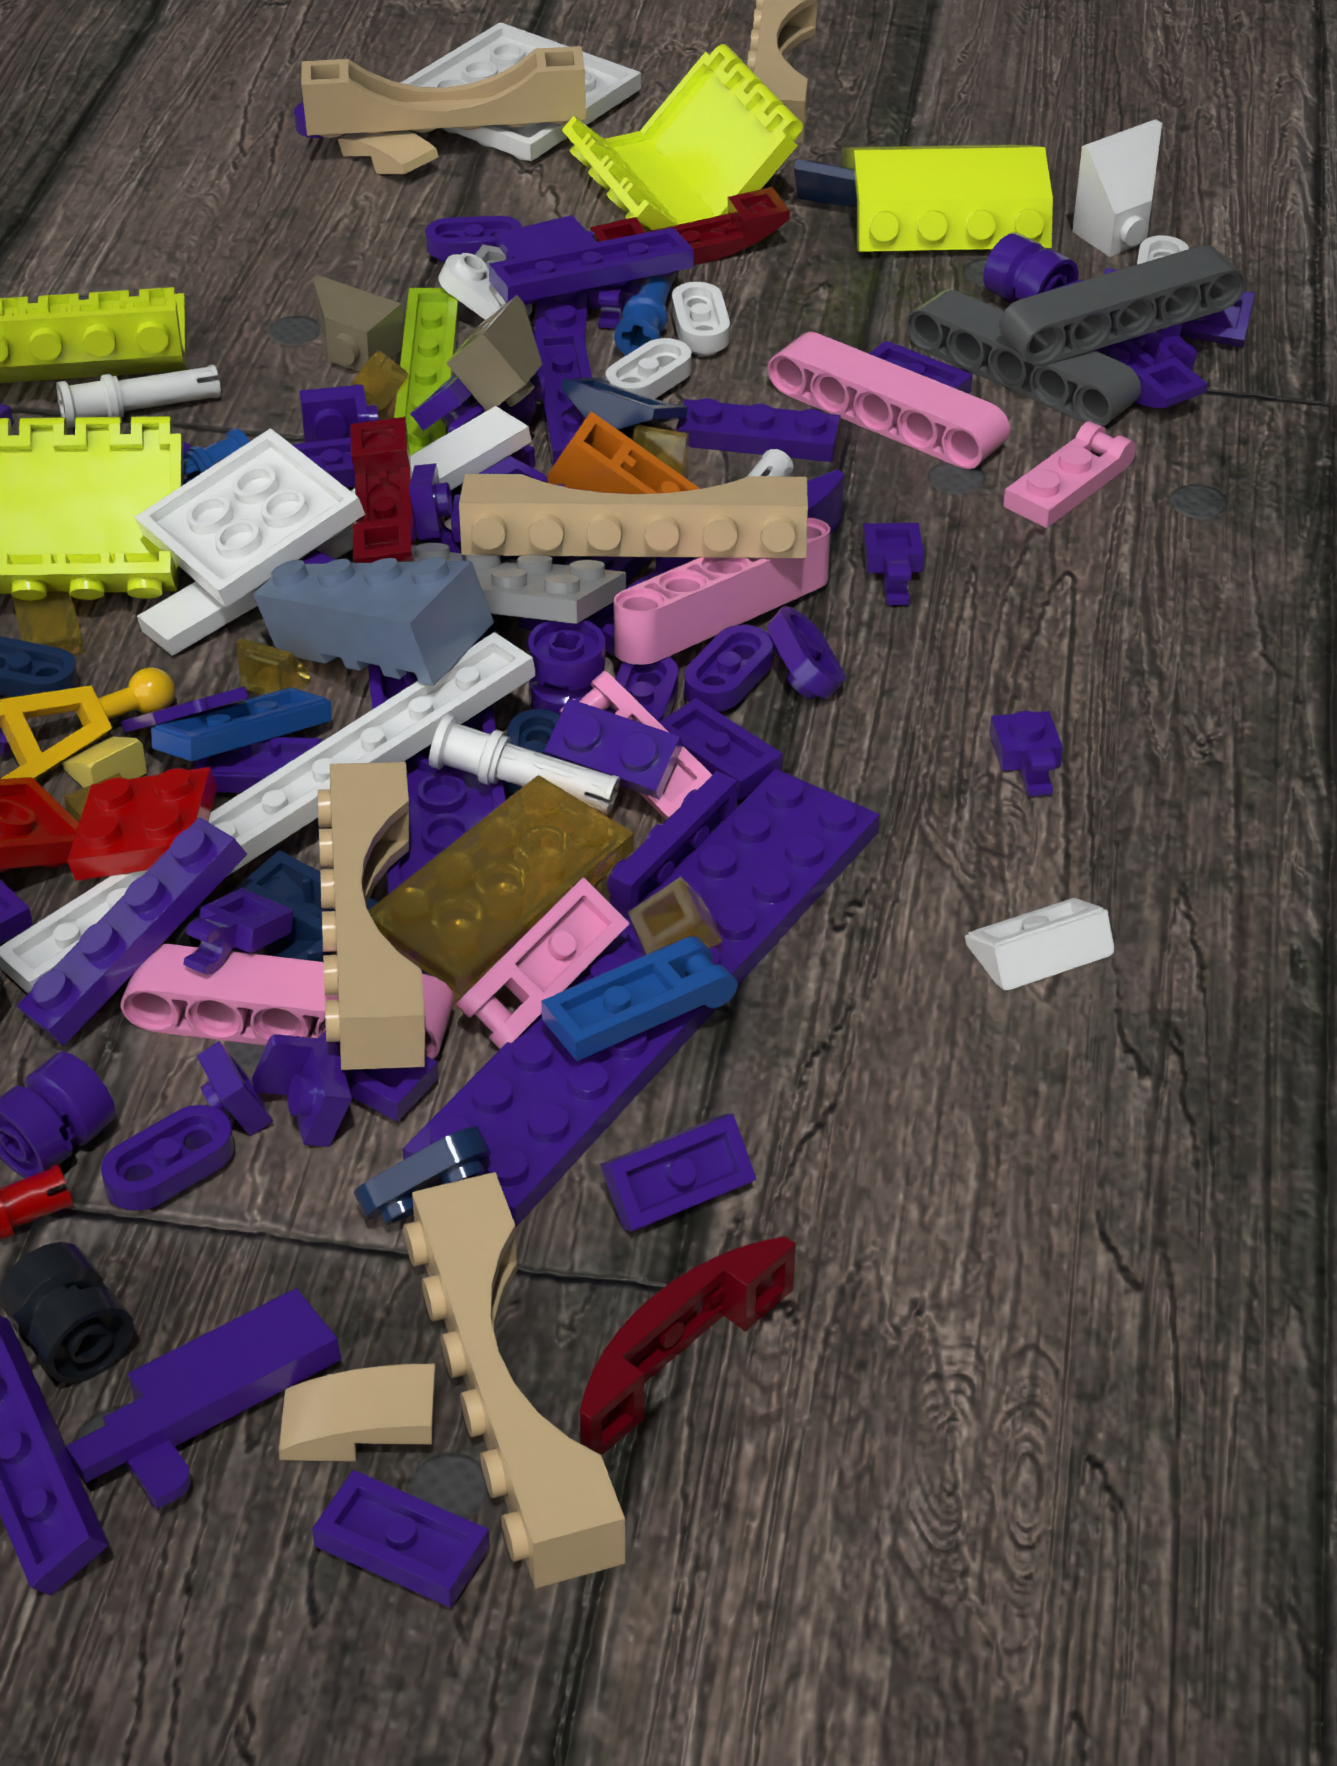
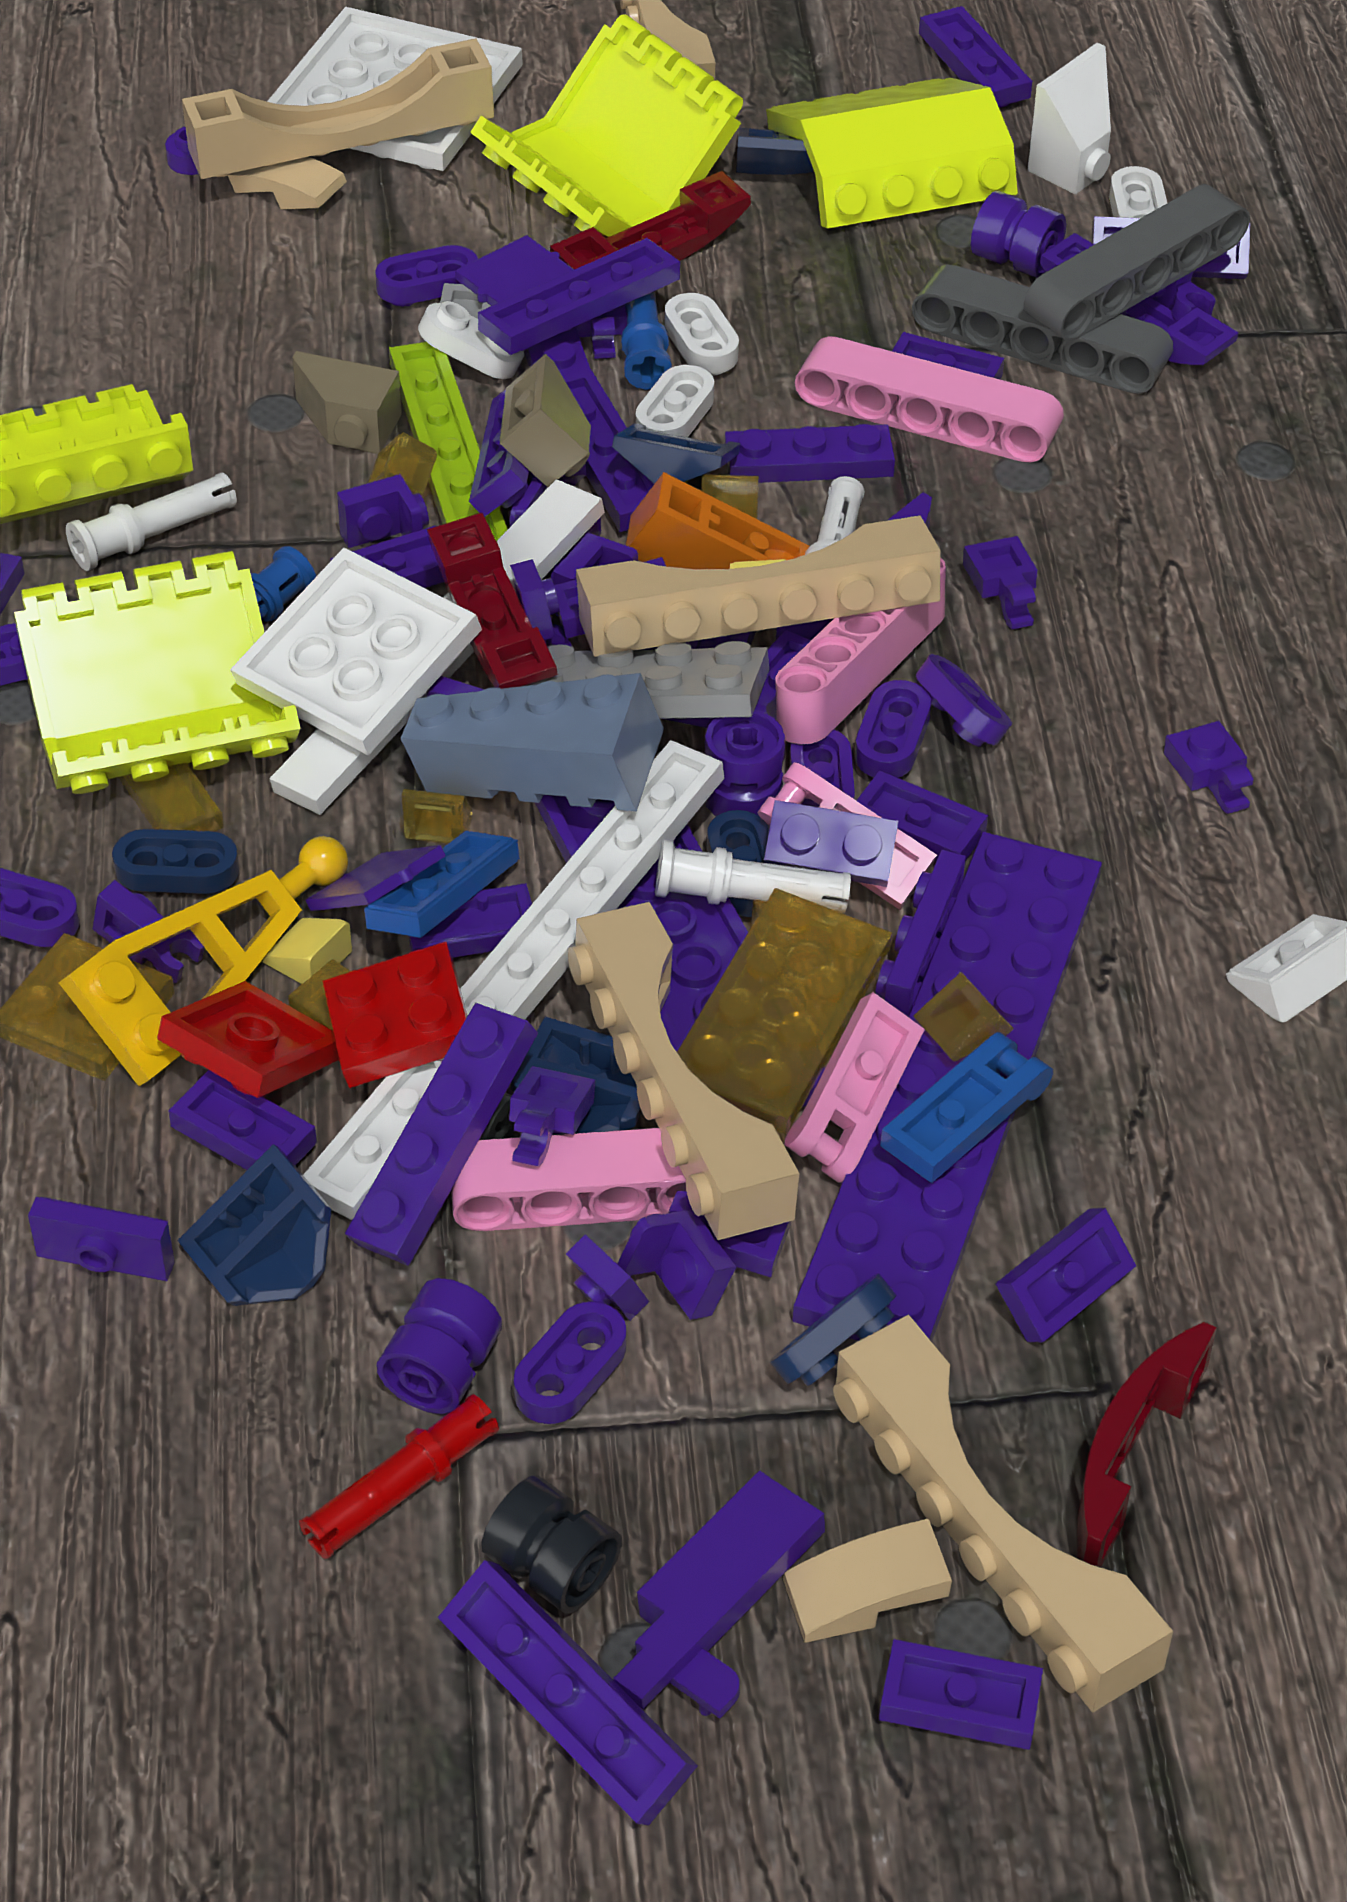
camera: 15 degrees left, 5 degrees up
(1055, 127) = (974, 54): none -> dark purple plate
(1070, 475) = (1135, 454): bright pink plate -> none

